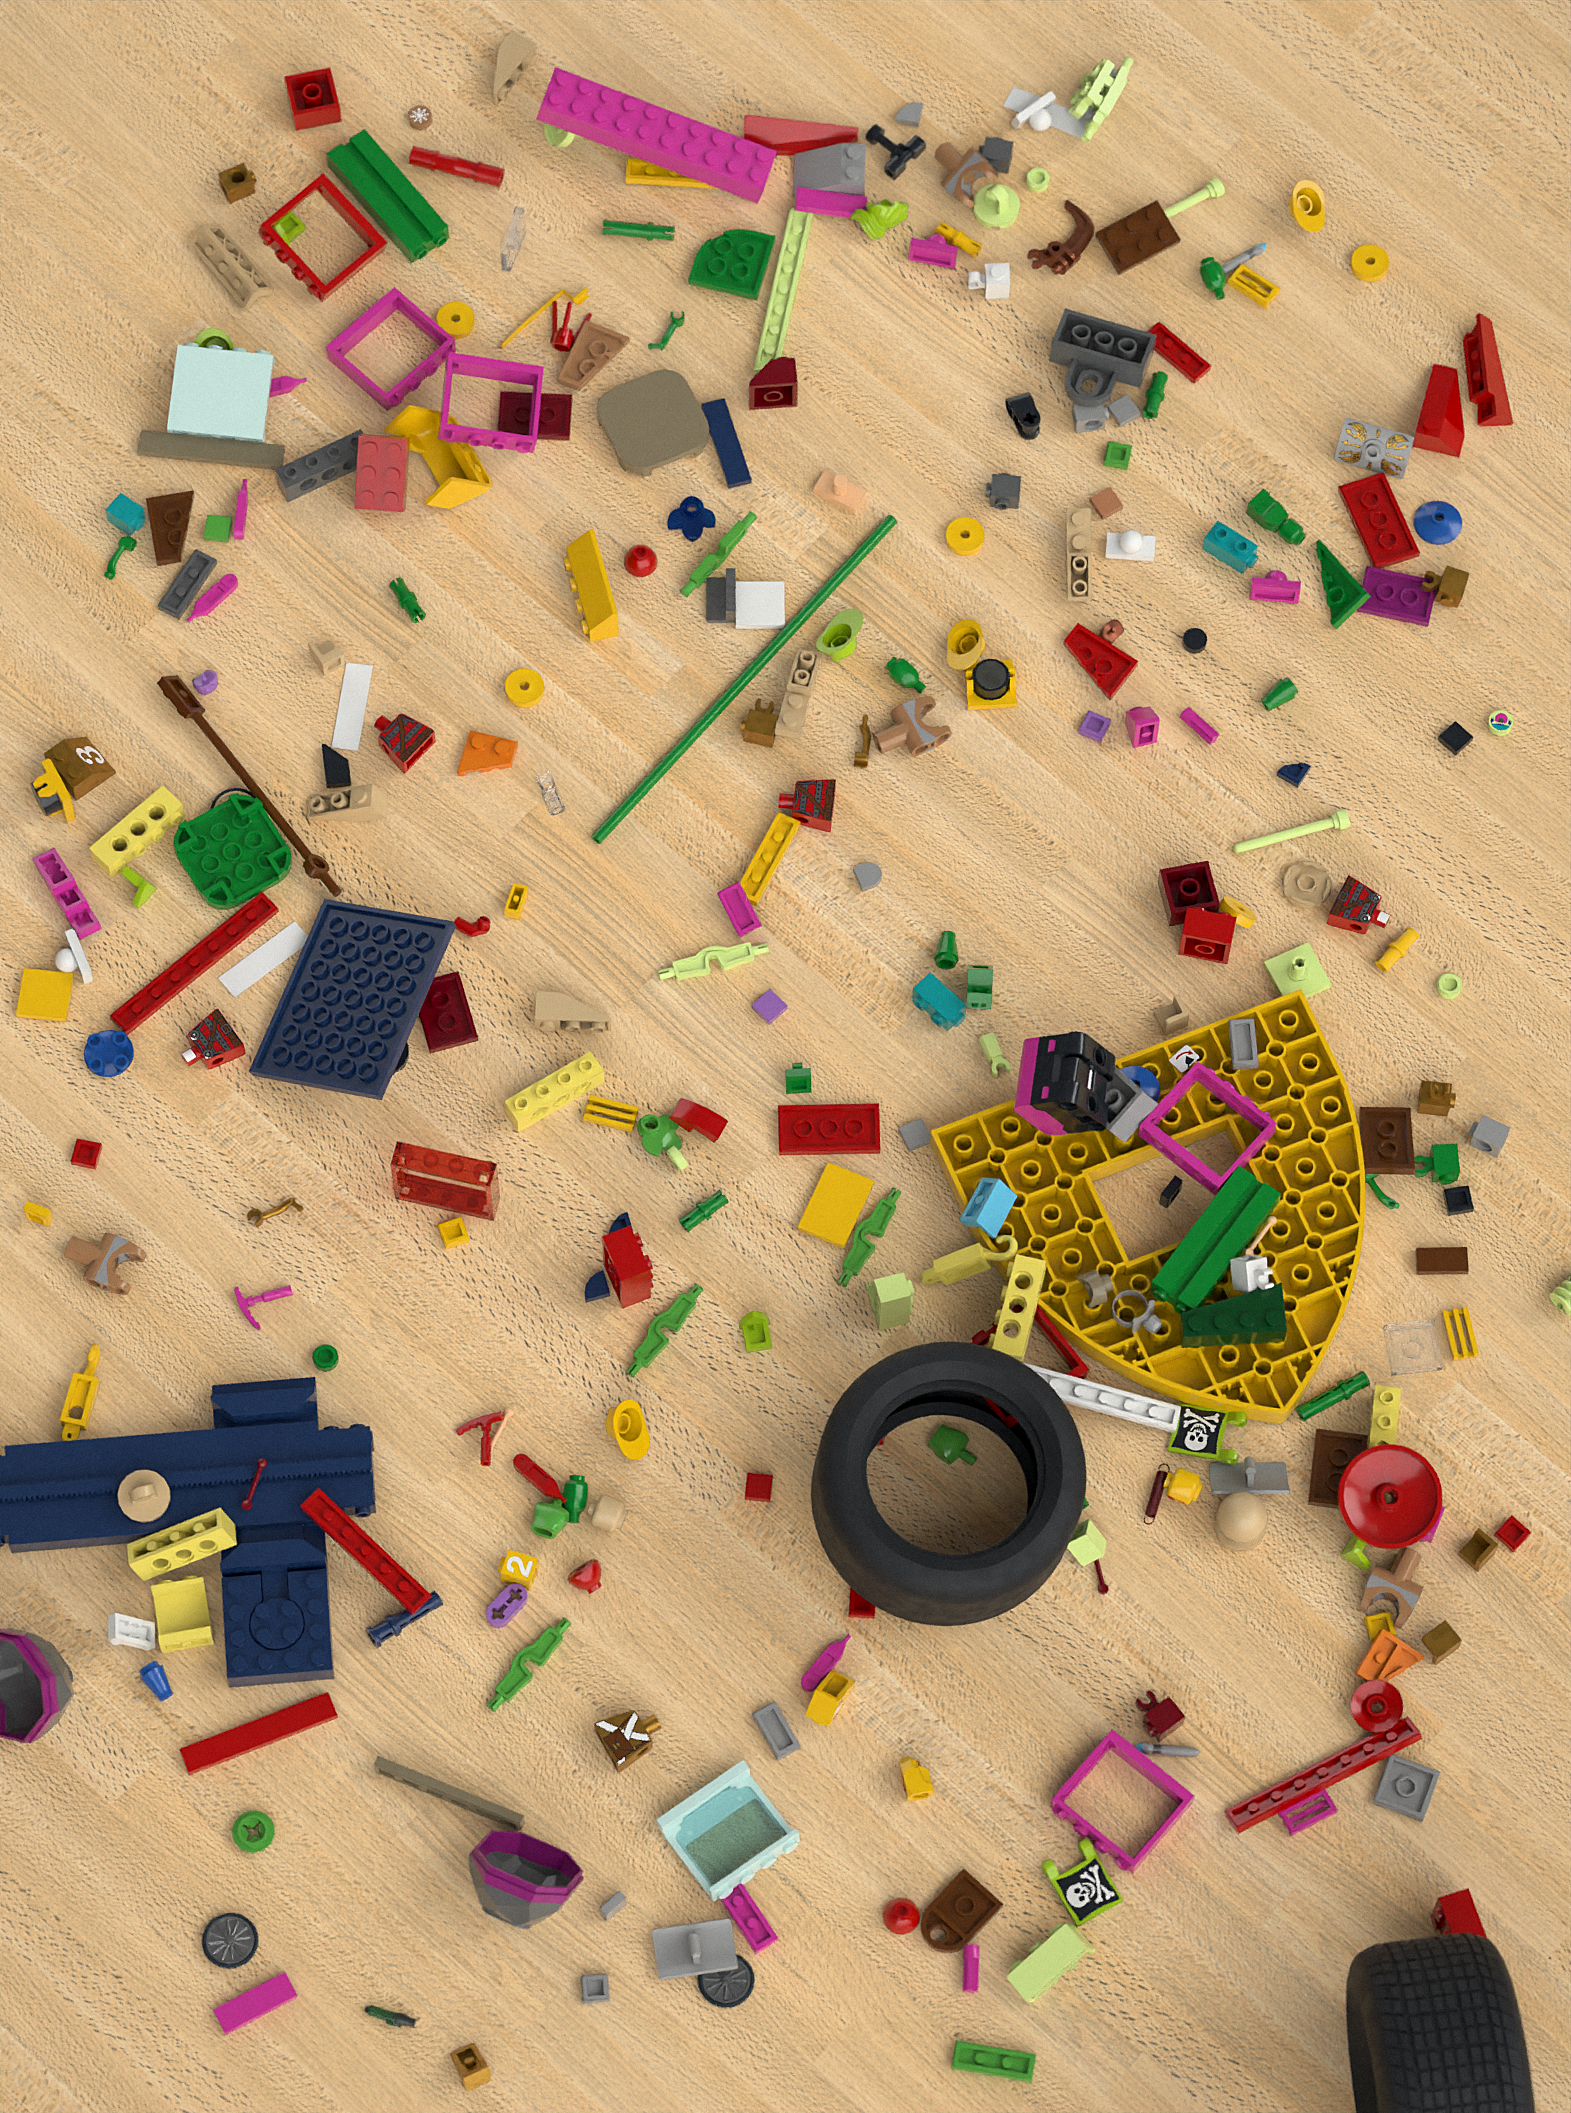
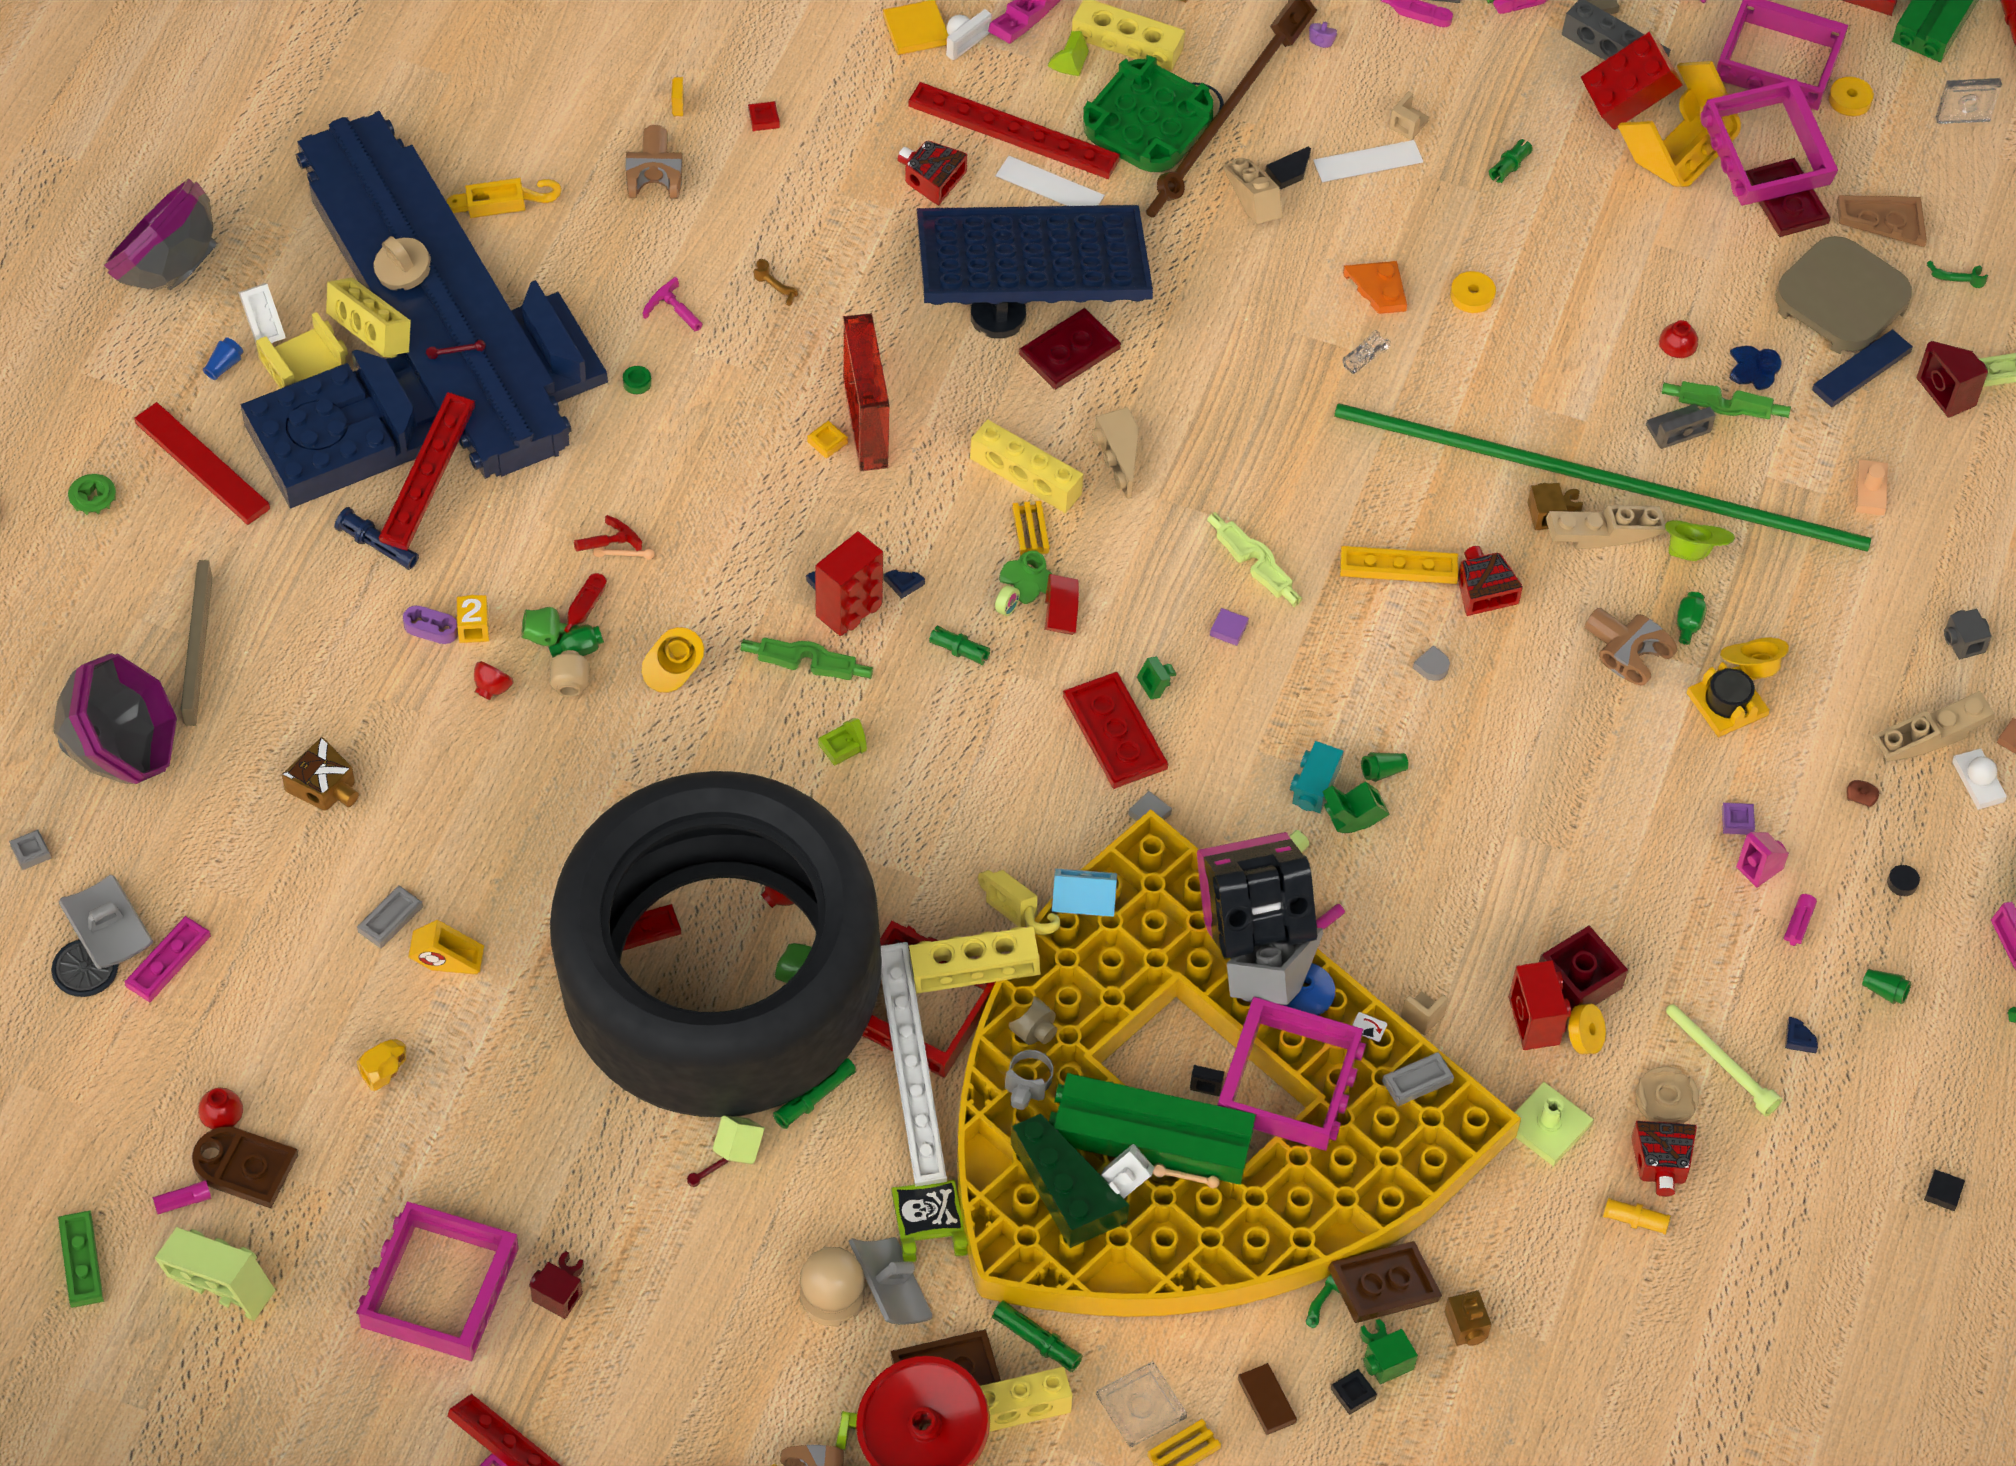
camera: 65 degrees right, 10 degrees down
(108, 1053) = (879, 94): blue dish -> none
(404, 740) = (1350, 210): torso -> none
(473, 929) = (1175, 340): red arm -> none
(516, 901) = (1226, 365): yellow piece -> none
(536, 1653) = (358, 661): bright green piece -> none
(563, 339) = (1892, 187): red plant -> none
(578, 299) = (1945, 187): yellow piece -> none
(592, 587) = (1618, 305): yellow slope -> none
(613, 1906) = (126, 830): light grey tile -> none
(727, 1832) = (253, 906): panel -> none
(739, 909) = (1324, 557): dark pink tile -> none
(760, 605) = (1693, 460): white tile -> none
(824, 1665) = (489, 936): dark pink piece -> none
(836, 1205) = (1028, 765): yellow tile -> none
(861, 759) = (1569, 613): pearl gold piece -> none
(876, 1226) = (990, 807): bright green piece -> none
(891, 1300) = (932, 839): yellowish green wedge -> none
(969, 545) = (1889, 629): yellow piece -> none
(1084, 1888) = (323, 1281): flag -> none
(1100, 659) = (1821, 796): red wing -> none
(1156, 1494) = (832, 1193): dark red piece -> none
(1170, 1750) = (517, 1290): light grey piece -> none
(1183, 1486) = (849, 1213): yellow head -> none
(1449, 986) = (1623, 1290): yellowish green tile -> none
(1488, 1136) = (1450, 1394): light grey brick -> none
(1500, 722) = (1993, 1231): tile -> none

